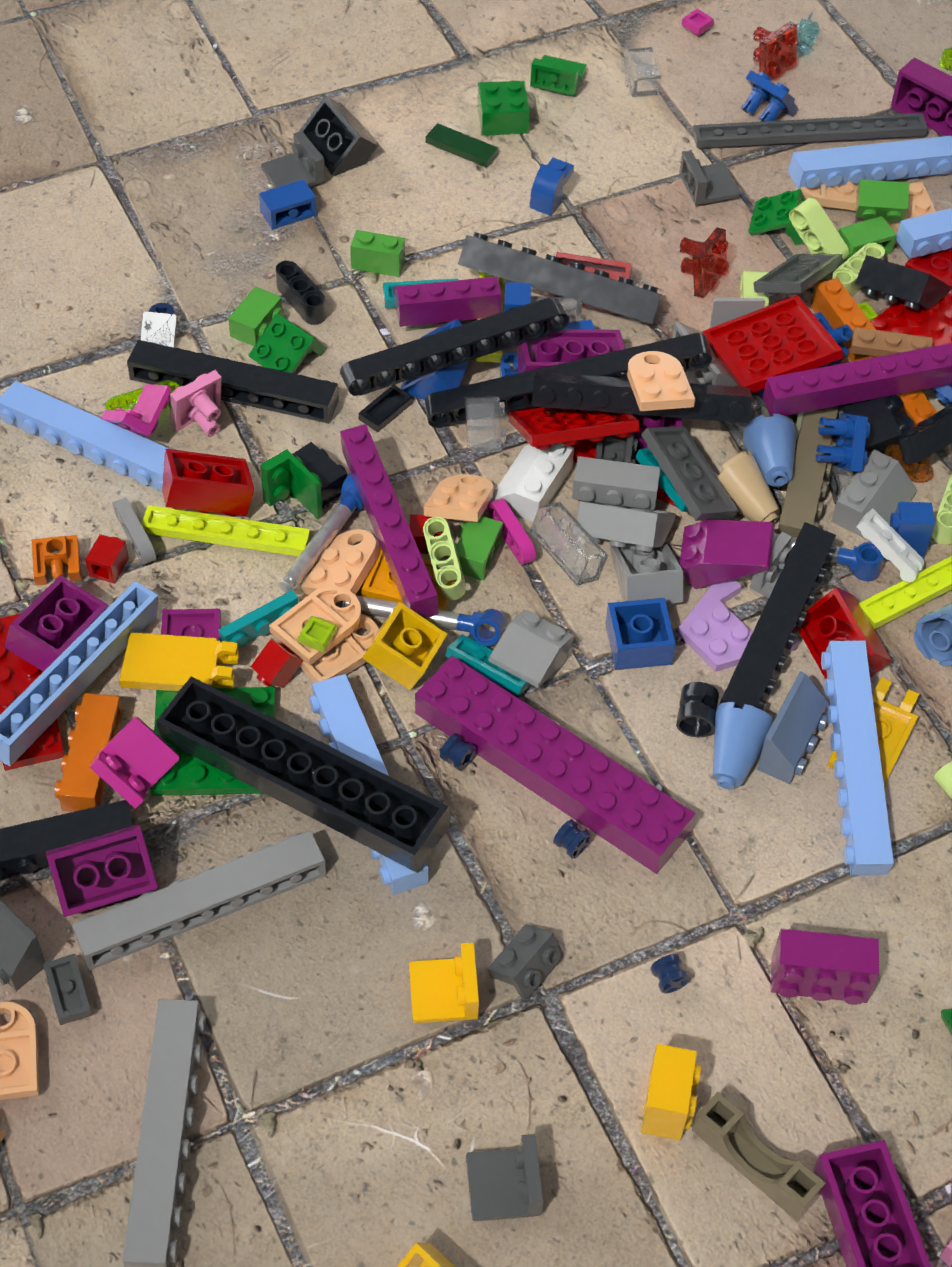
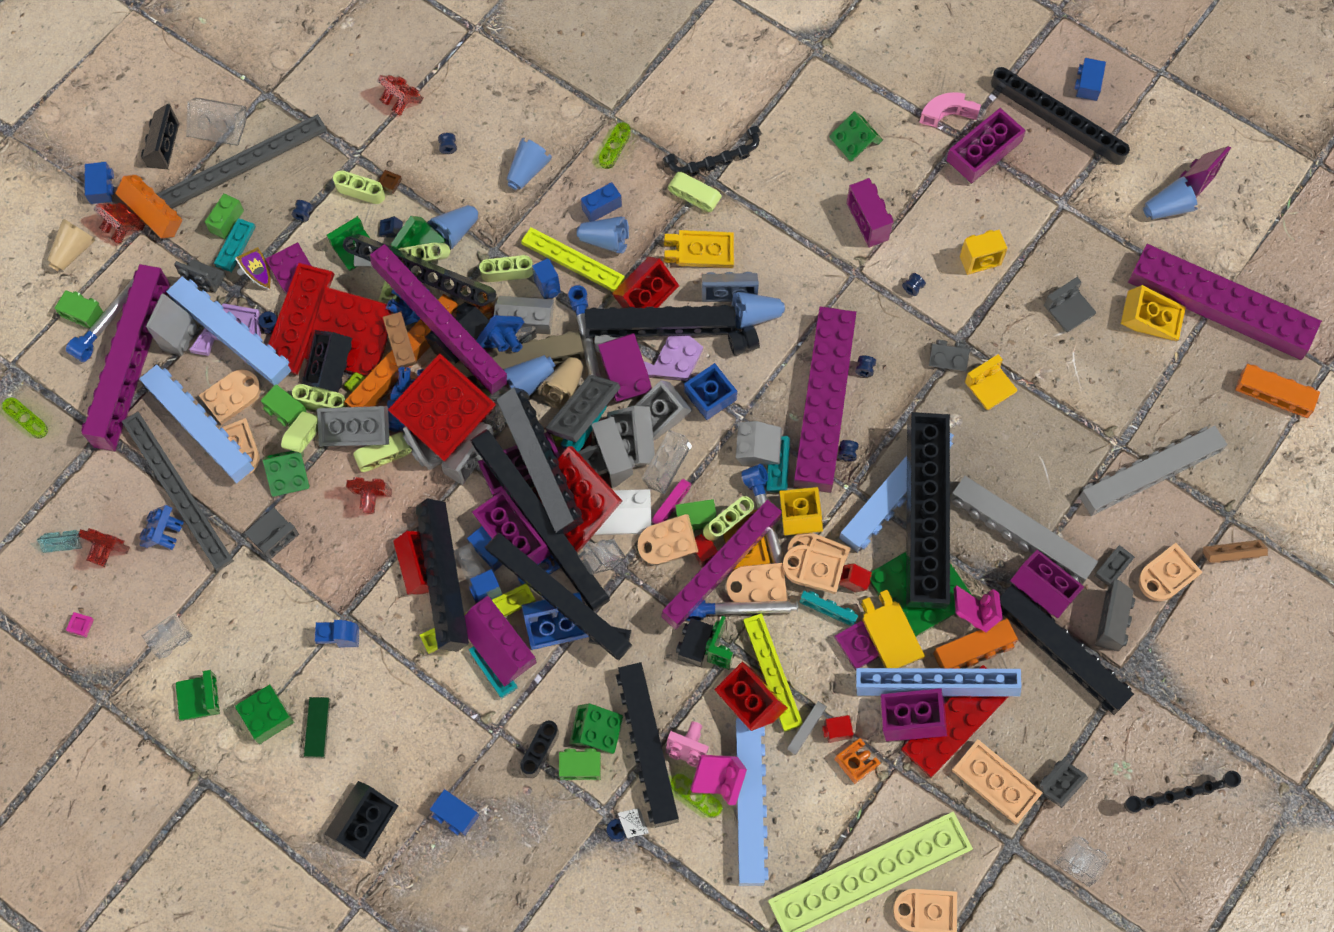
camera: 115 degrees left, 15 degrees up
(301, 164) = (413, 832): dark grey bracket -> none
(317, 634) = (828, 558): lime tile -> none
(377, 253) = (473, 717): bright green brick -> none
(659, 384) = (535, 443): light nougat plate -> none
(782, 1180) = (987, 200): dark tan arch -> none
(858, 759) = (729, 245): light blue brick -> none
(882, 199) = (245, 404): bright green brick -> none
(891, 545) = (569, 282): white plate -> none

